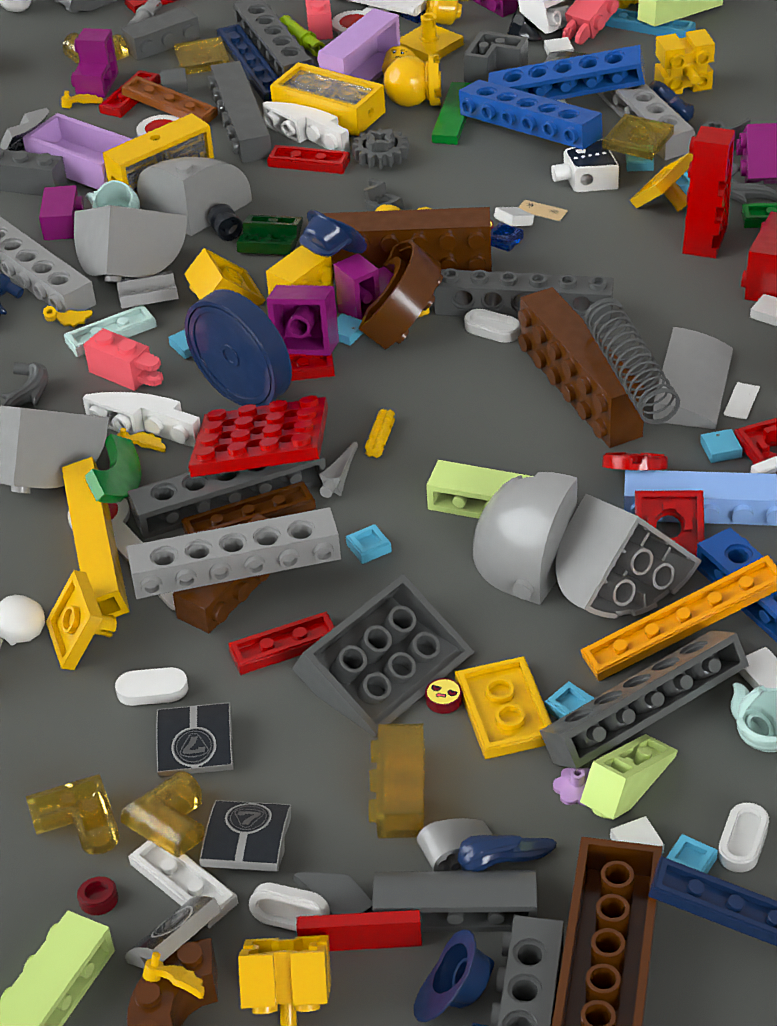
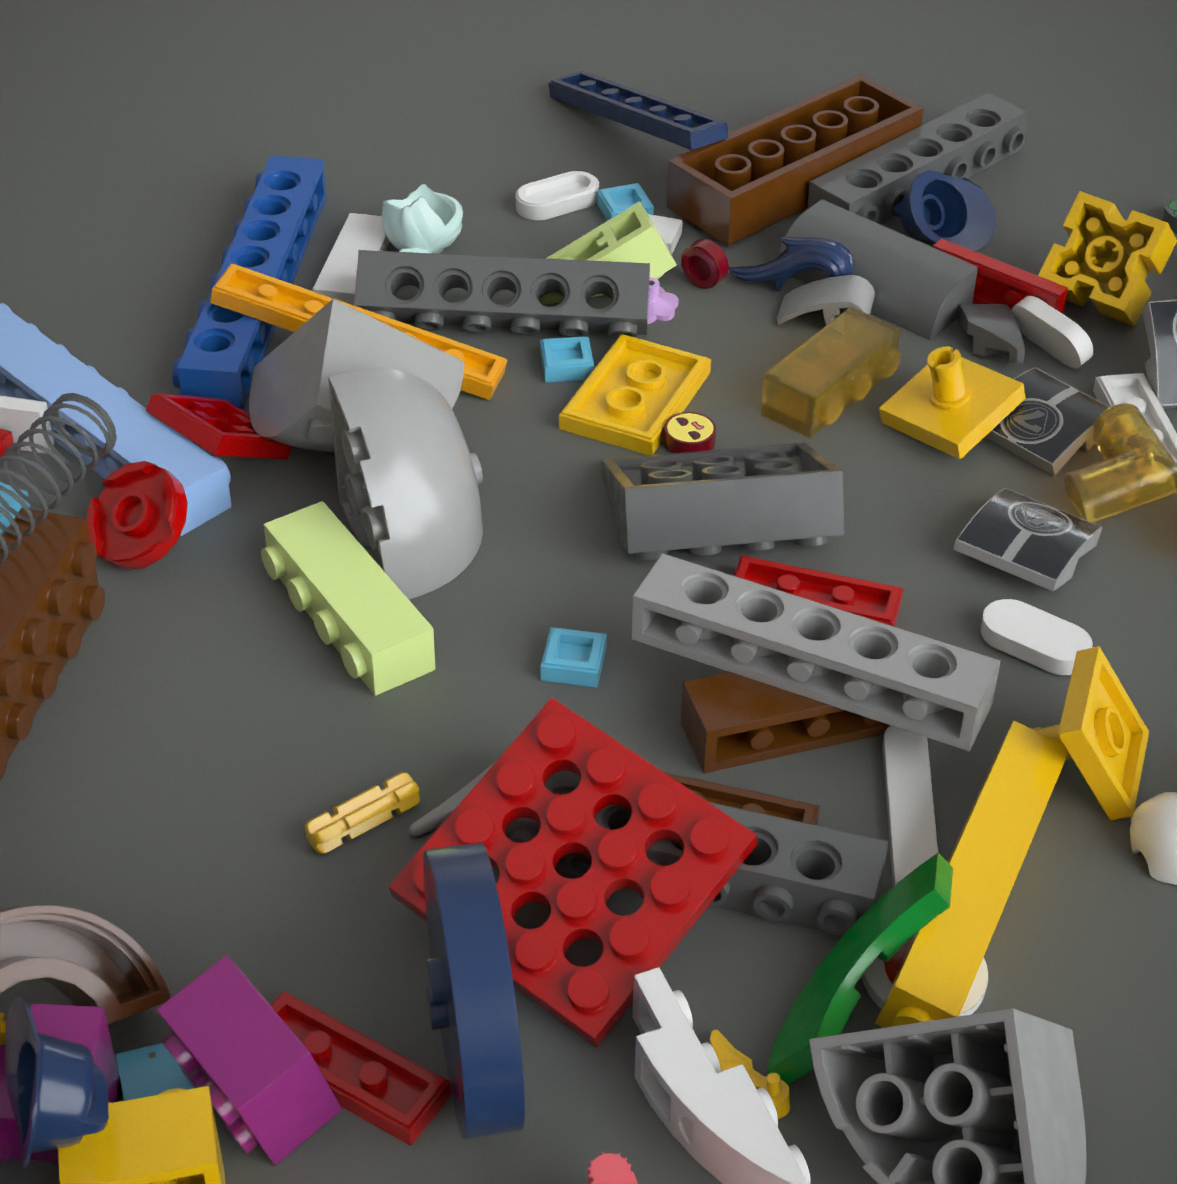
camera: 145 degrees left, 0 degrees up
(306, 797) = (952, 403): none -> yellow tile
(566, 819) = (704, 263): none -> dark red tile

